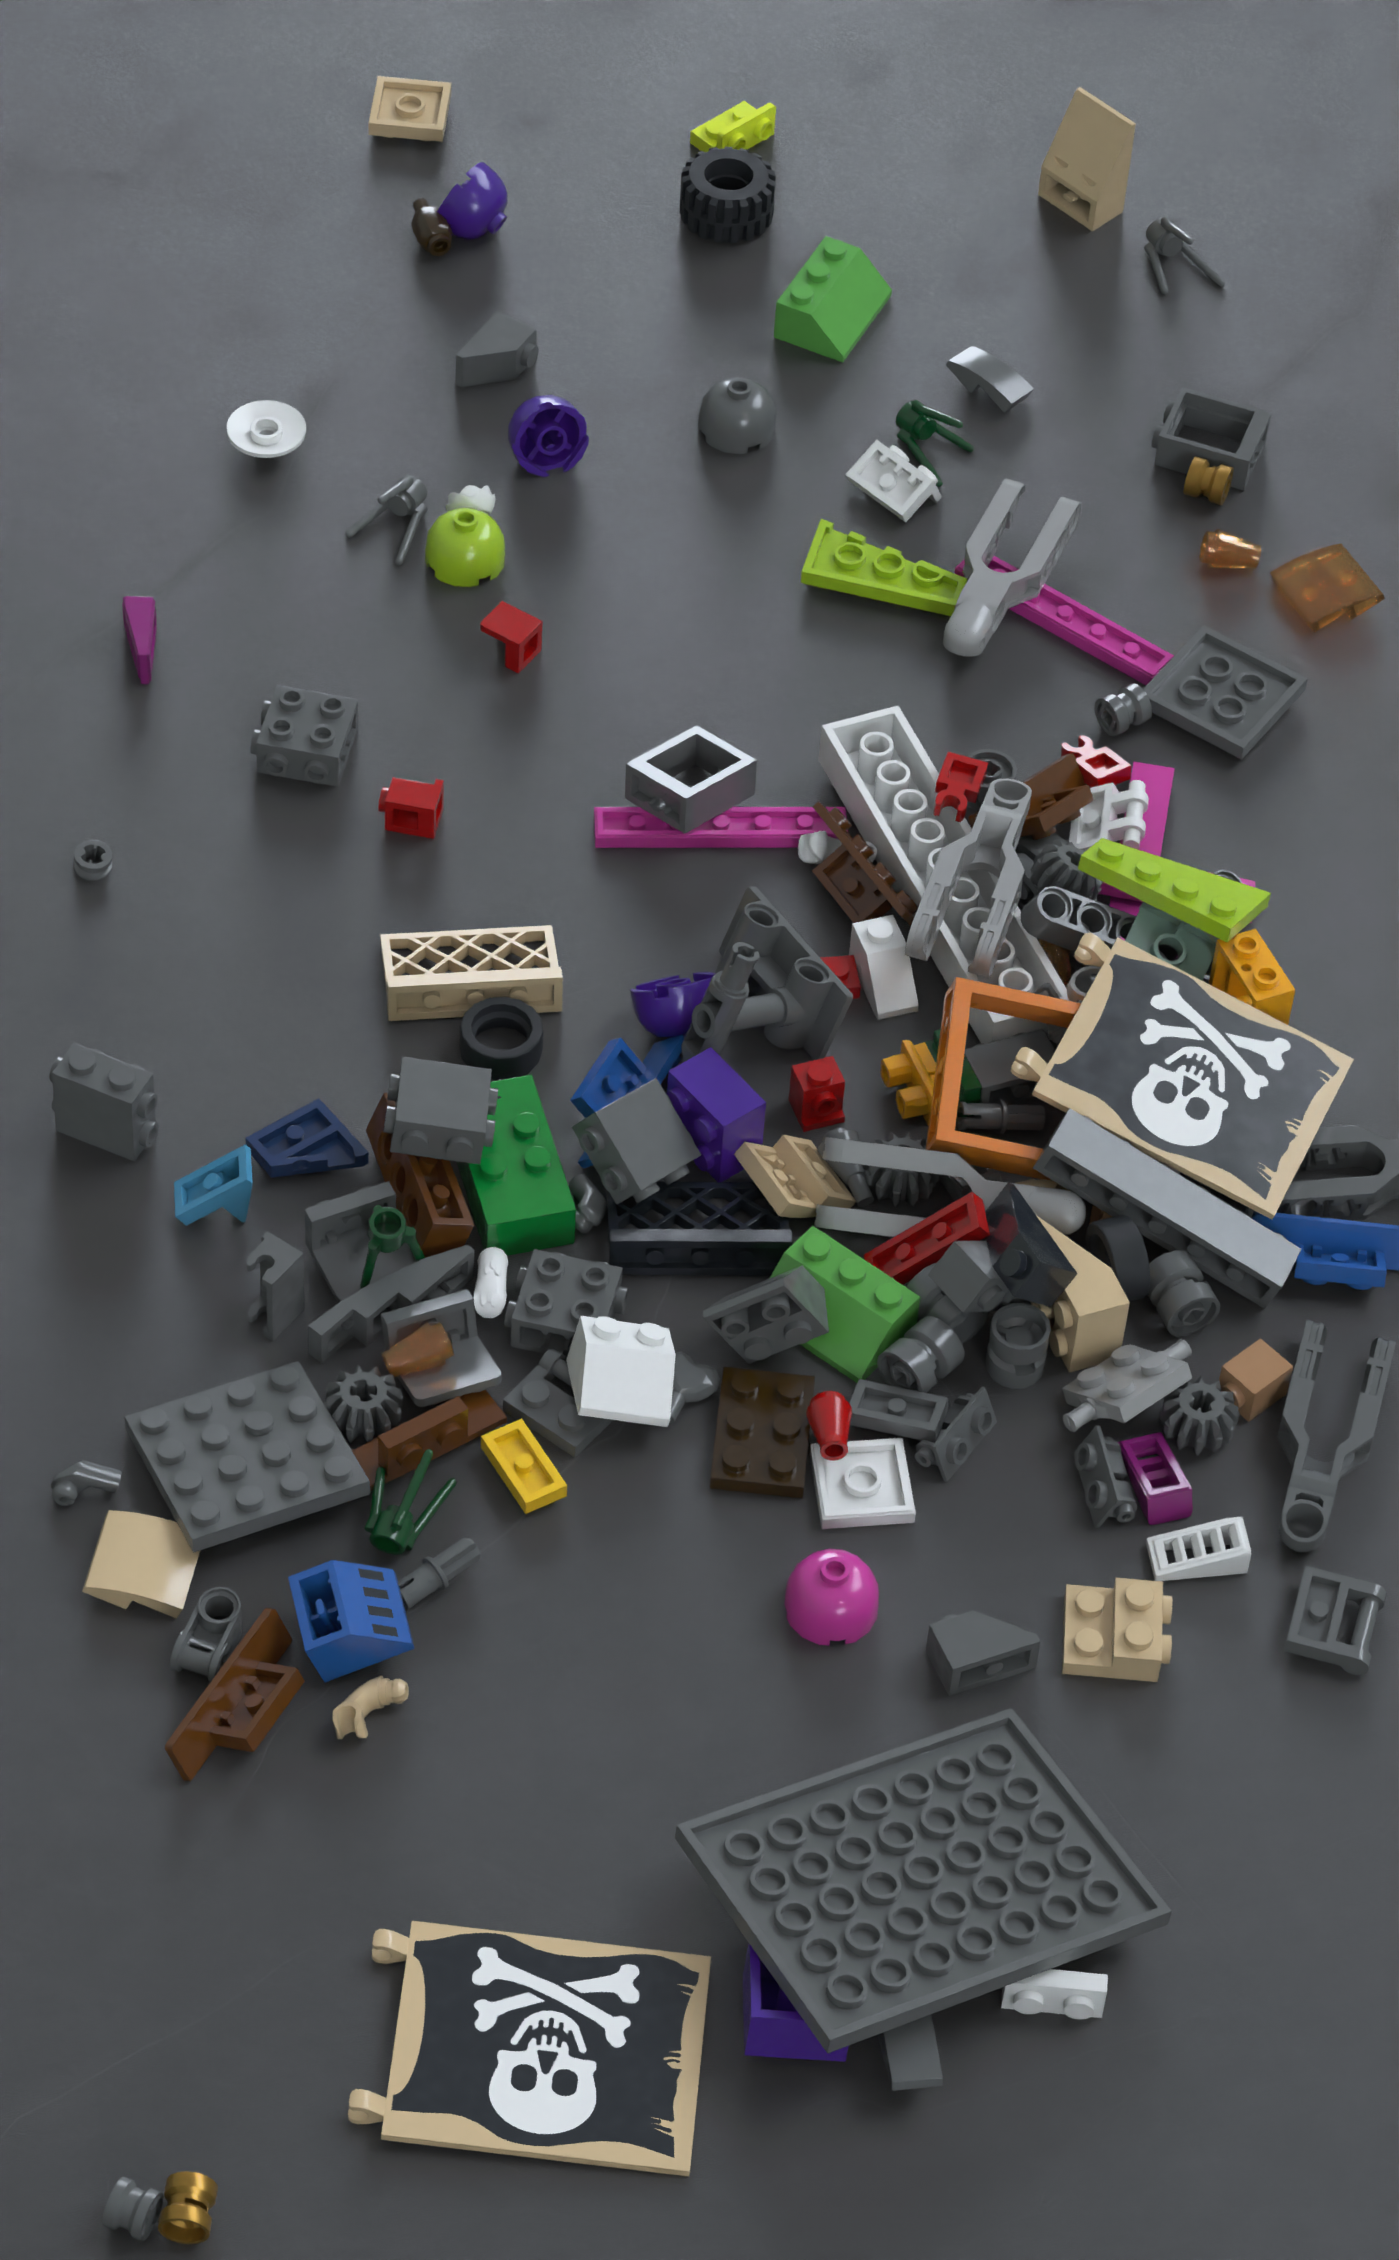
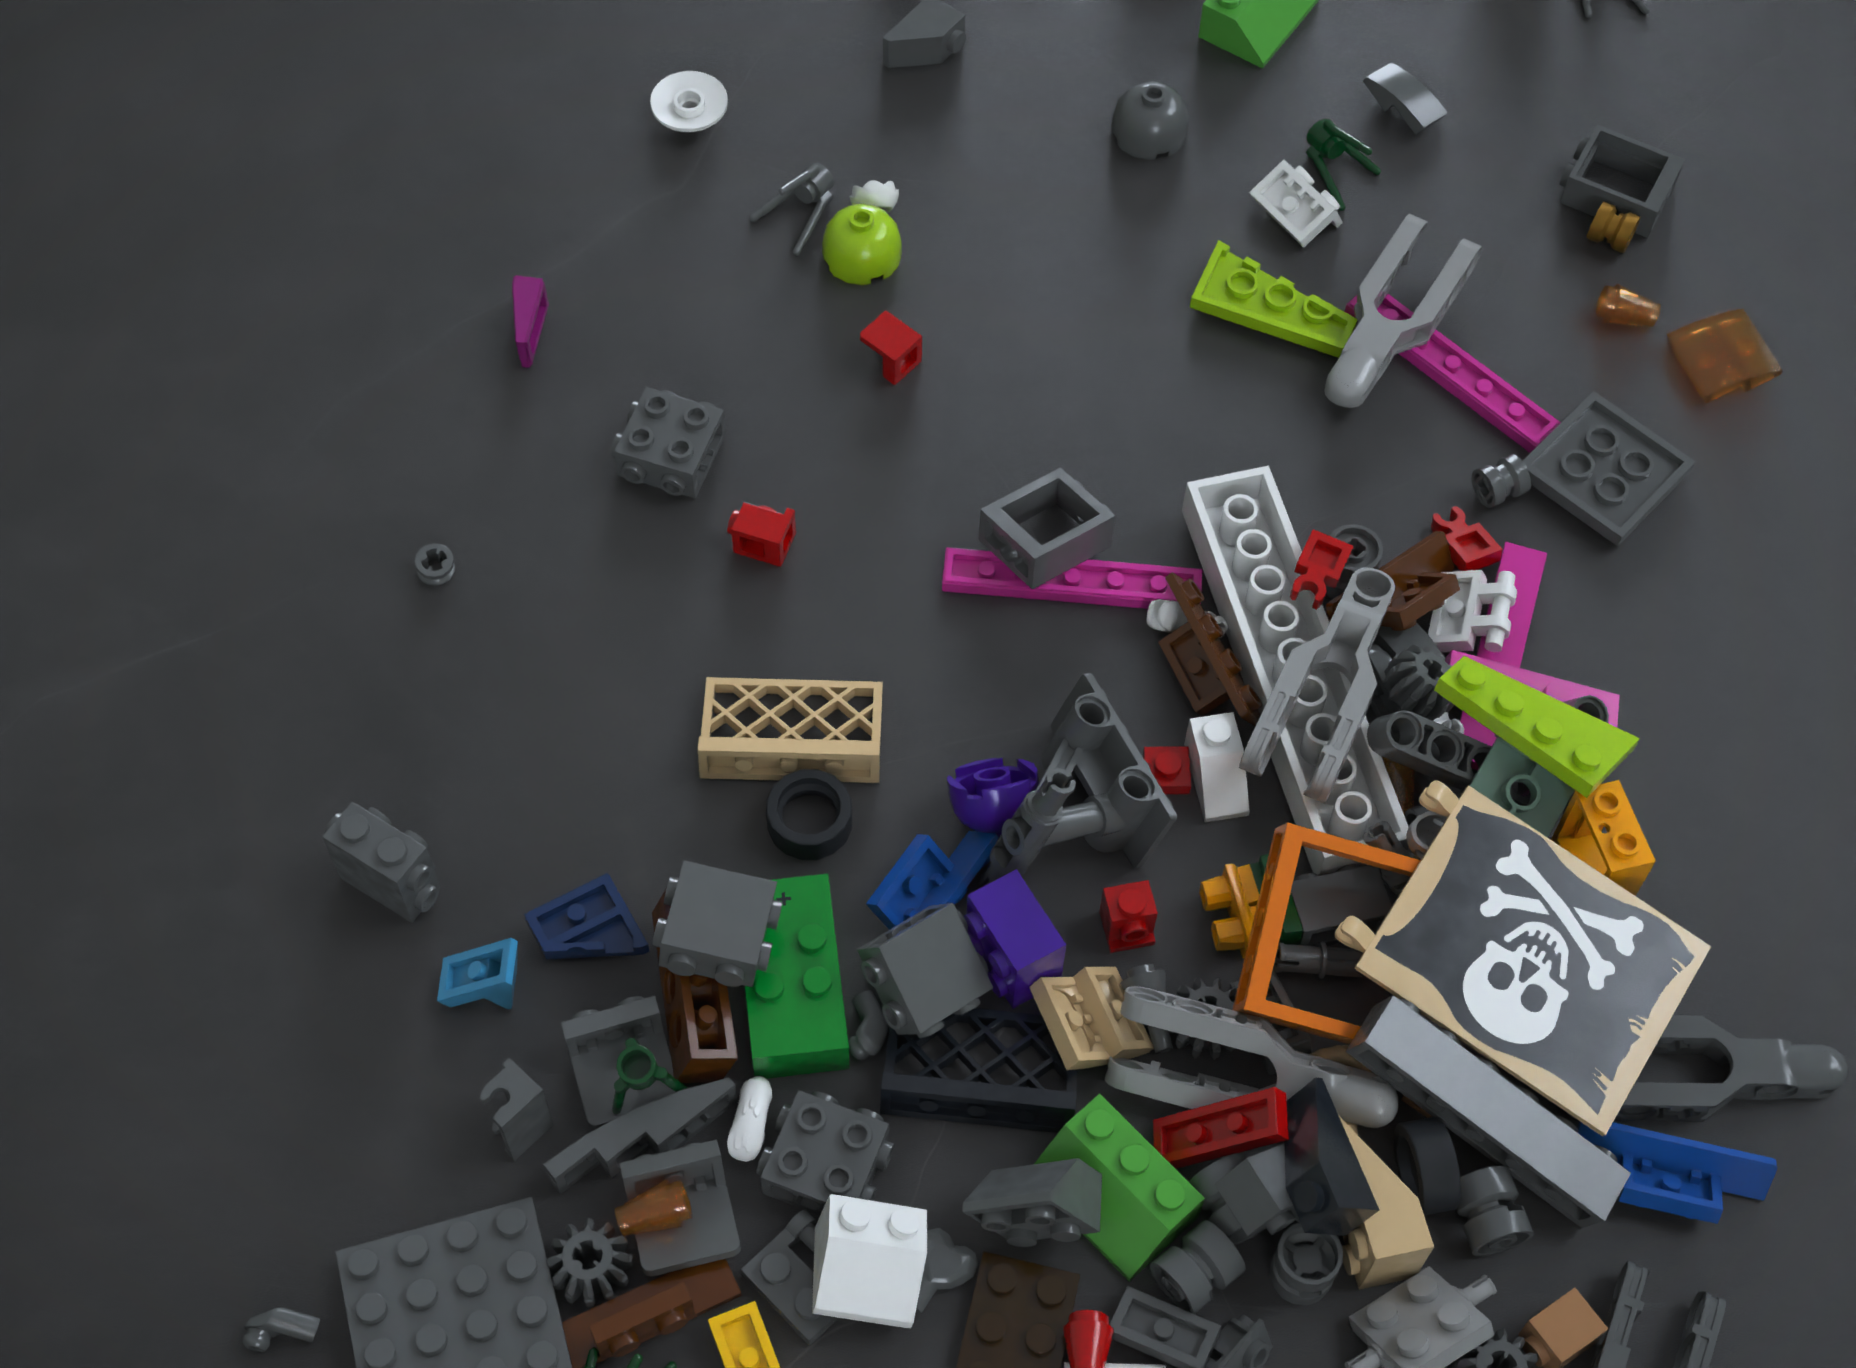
camera: 10 degrees right, 10 degrees up
(547, 434) = (959, 128): dark purple cylinder -> none

